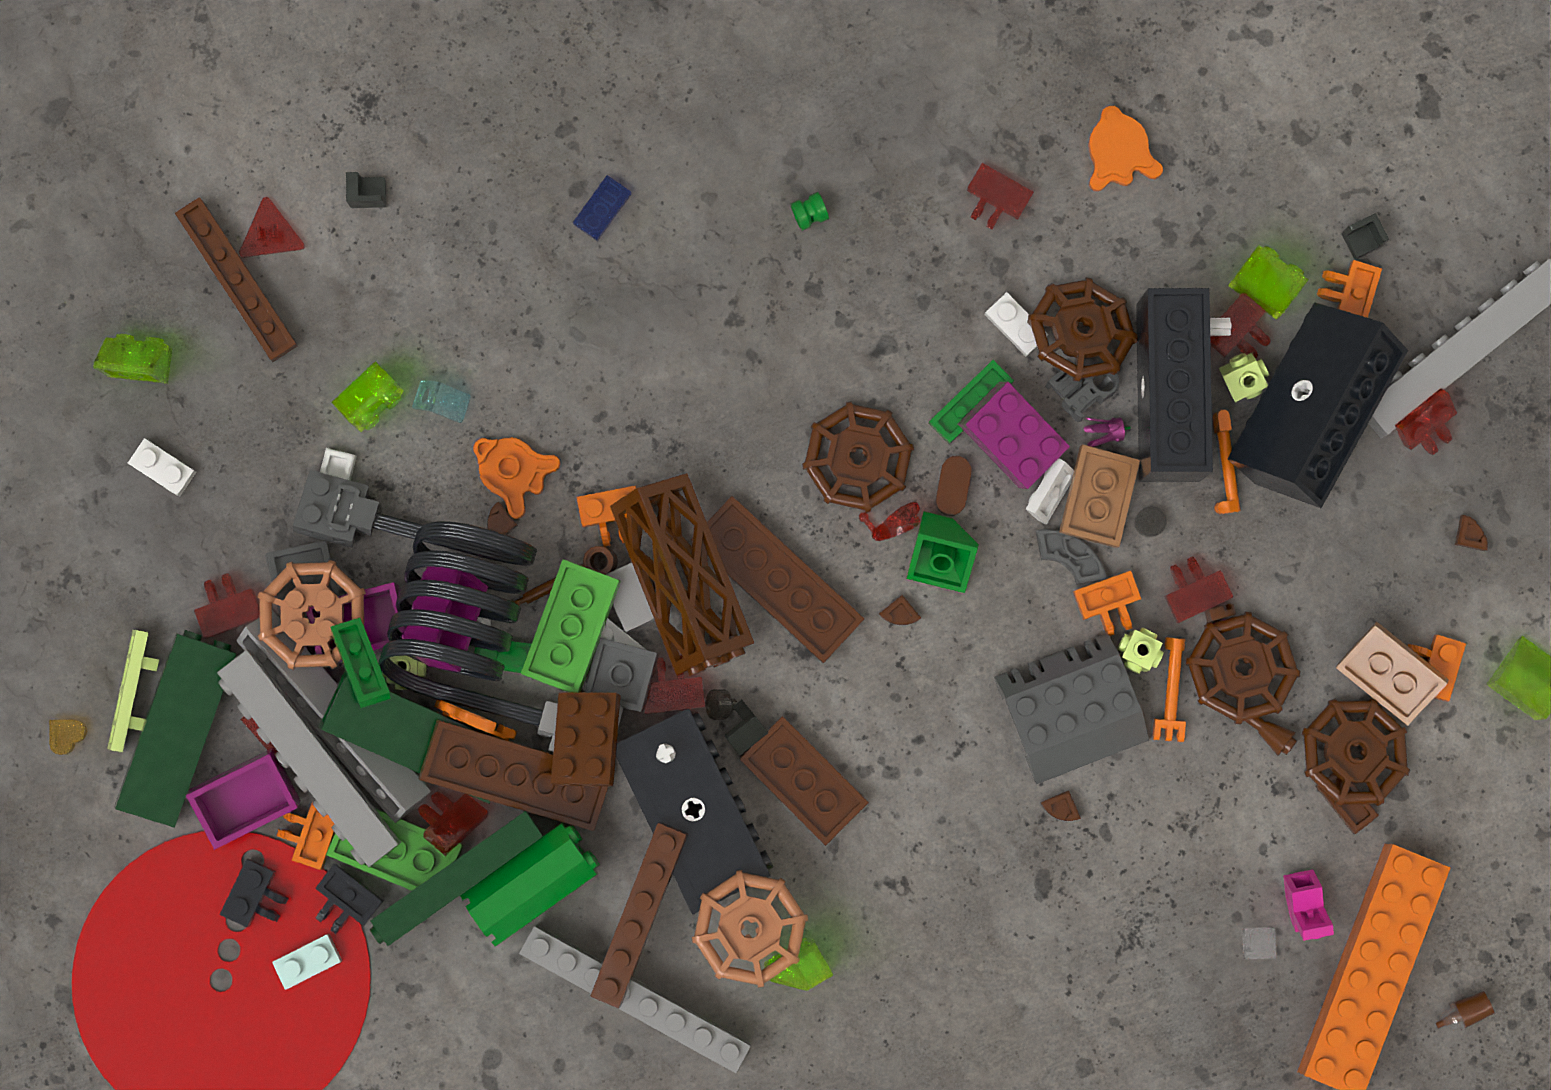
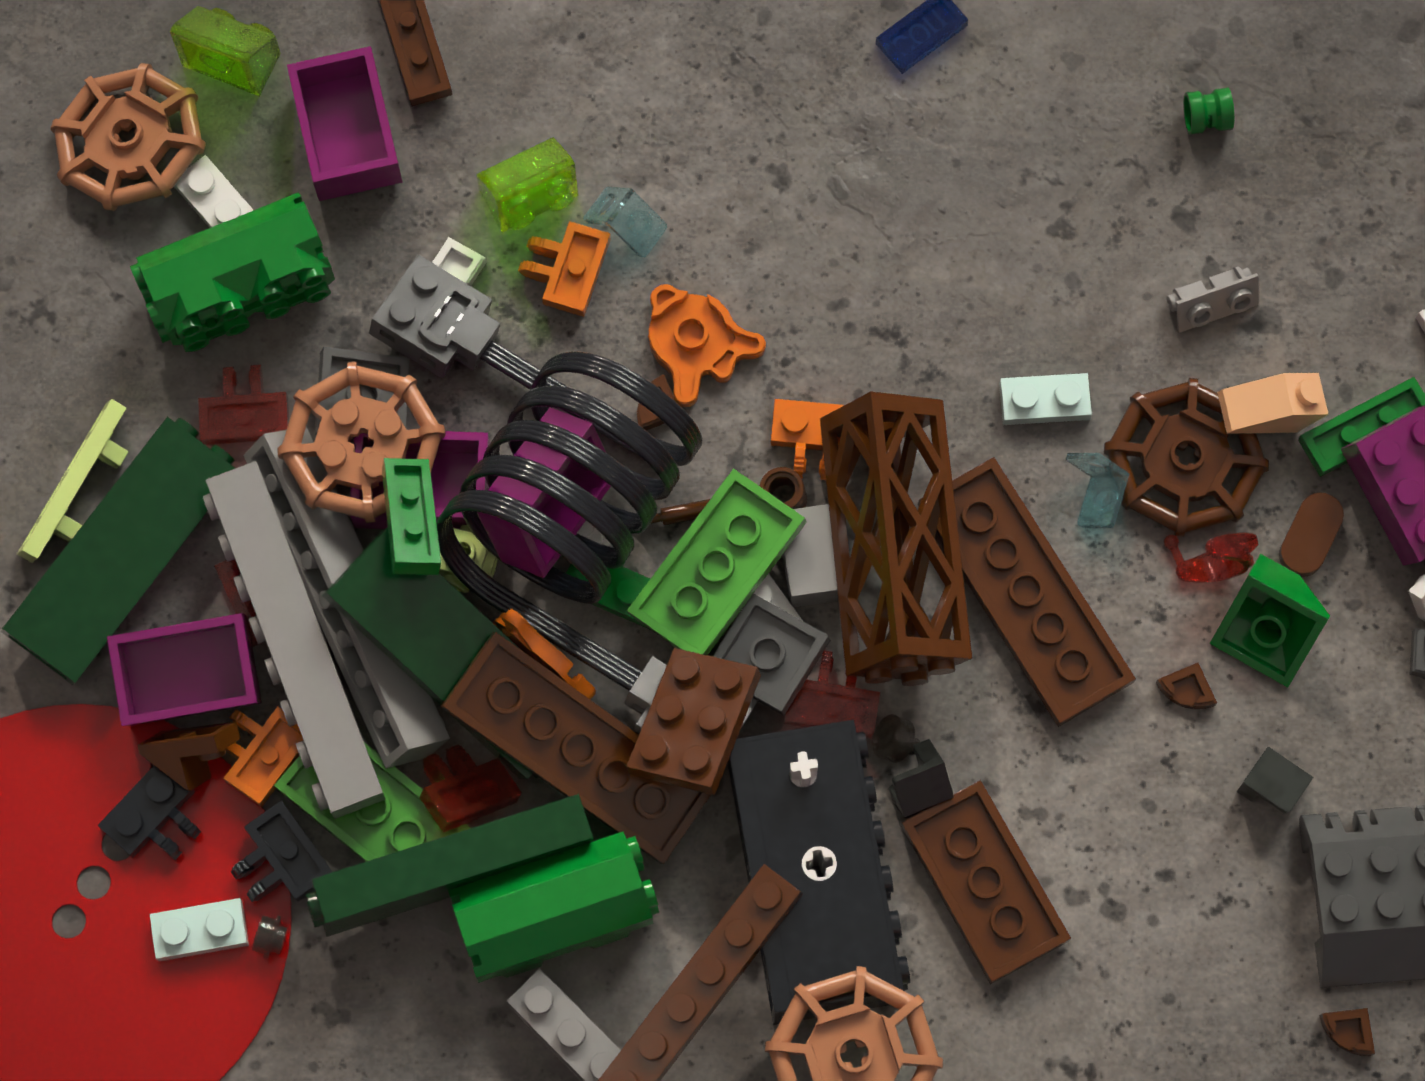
camera: 15 degrees right, 10 degrees down
(99, 453) = (134, 157): none -> nougat plate
(189, 518) = (232, 270): none -> green brick
(231, 391) = (344, 123): none -> magenta piece
(263, 850) = (186, 751): none -> reddish brown slope
(354, 953) = (269, 936): none -> clear smoke plate
(418, 445) = (575, 268): none -> orange hinge
(755, 443) = (1045, 399): none -> light aqua plate
(810, 499) = (1103, 491): none -> clear light blue bracket
(859, 334) = (1230, 294): none -> light grey hinge
(905, 407) = (1273, 404): none -> light nougat slope
(972, 661) = (1275, 781): none -> pearl dark grey panel

